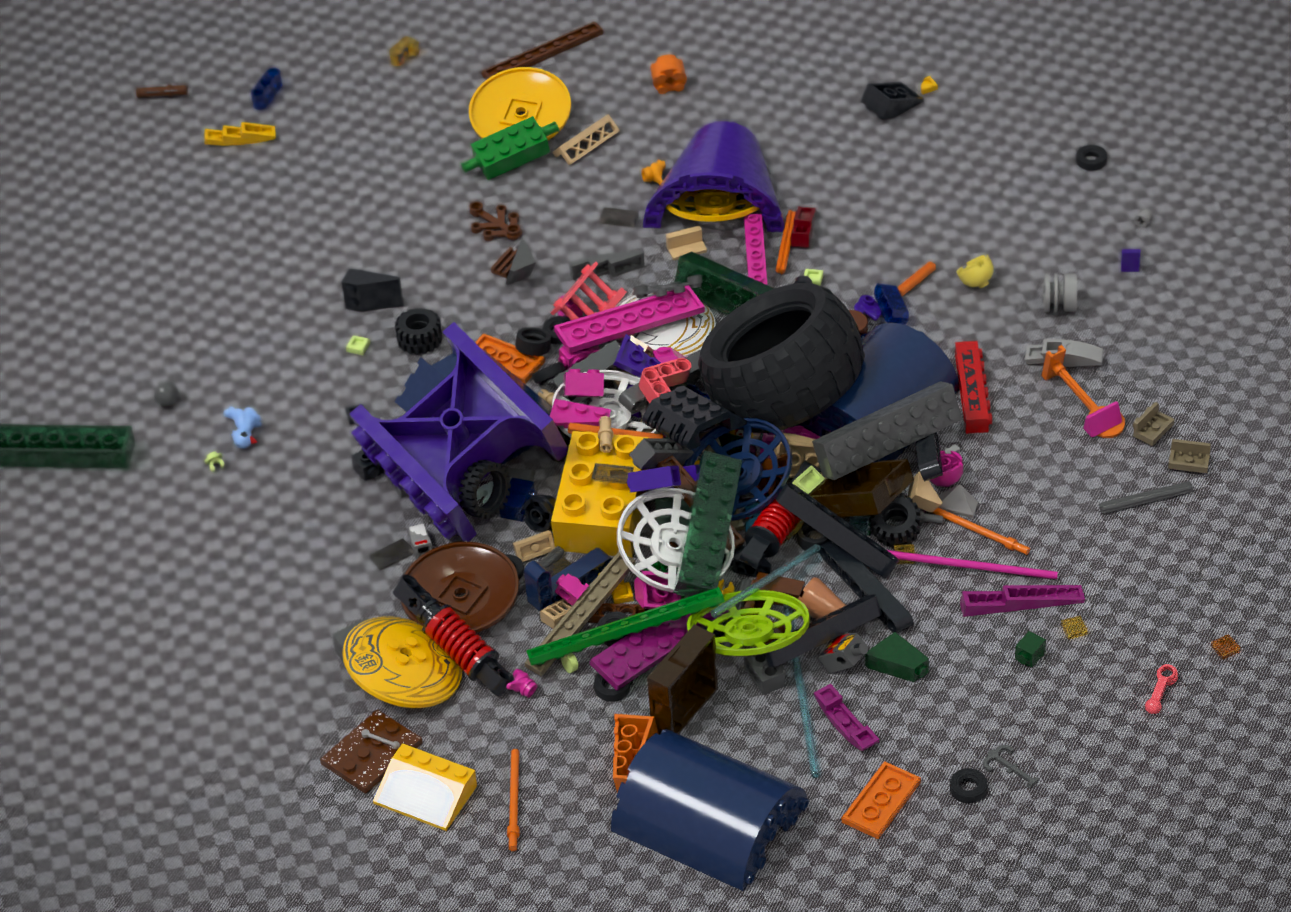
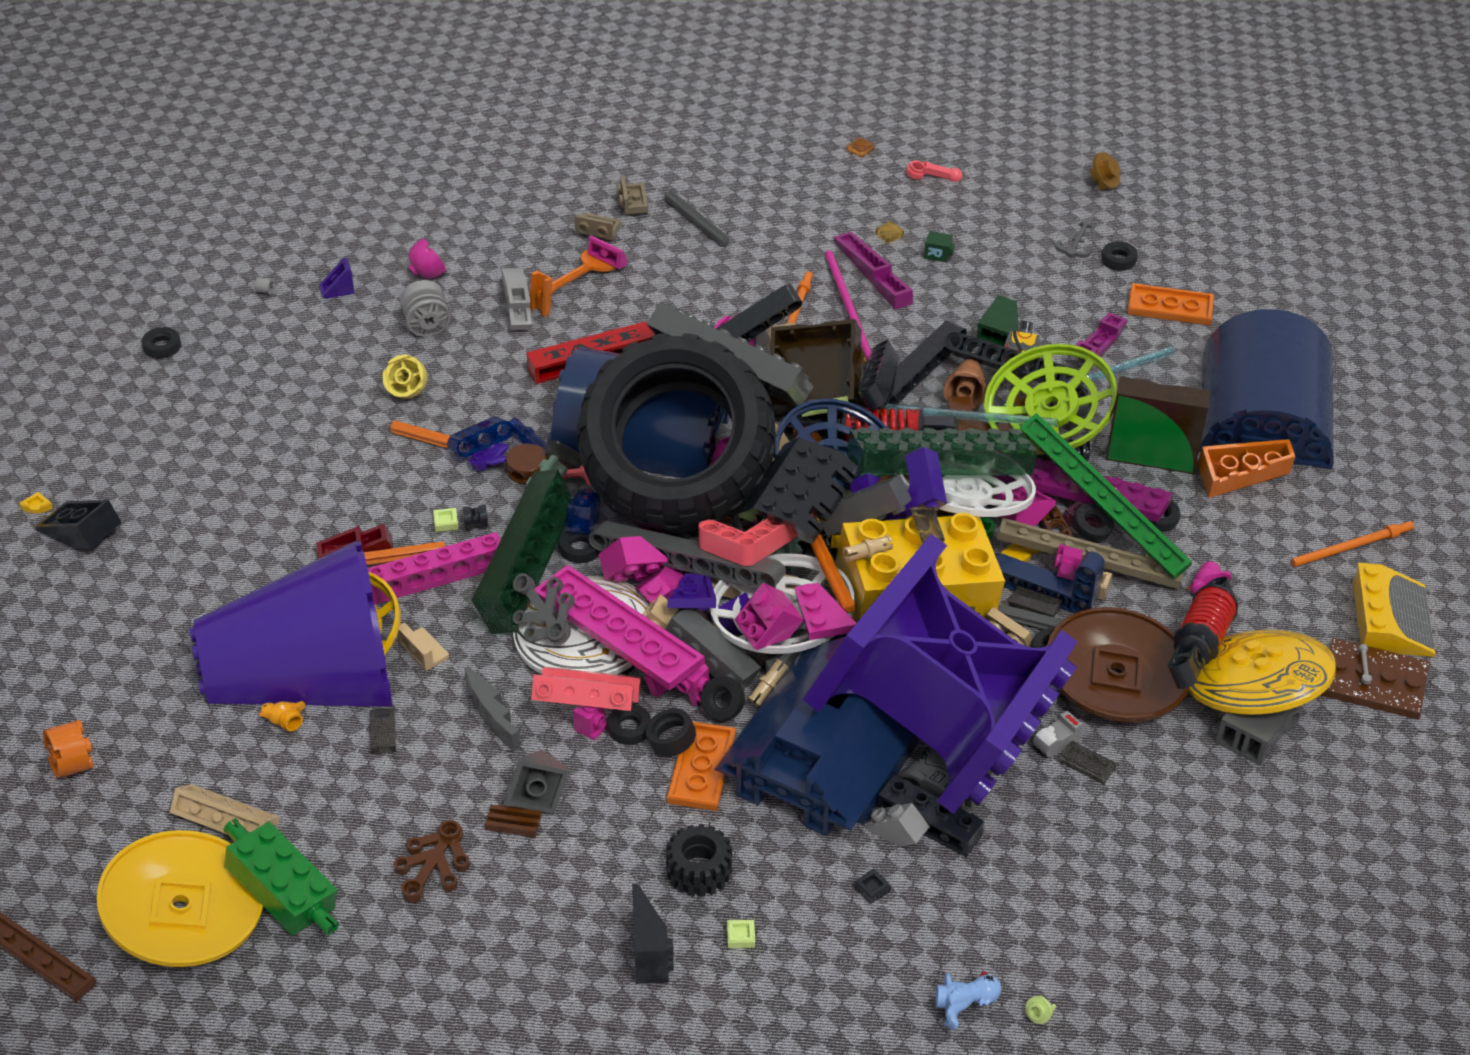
camera: 115 degrees left, 0 degrees up
(692, 337) = (630, 559): none -> dark pink slope
(1101, 814) = (1105, 171): none -> pearl gold piece
(1135, 308) = (425, 261): none -> dark pink cylinder

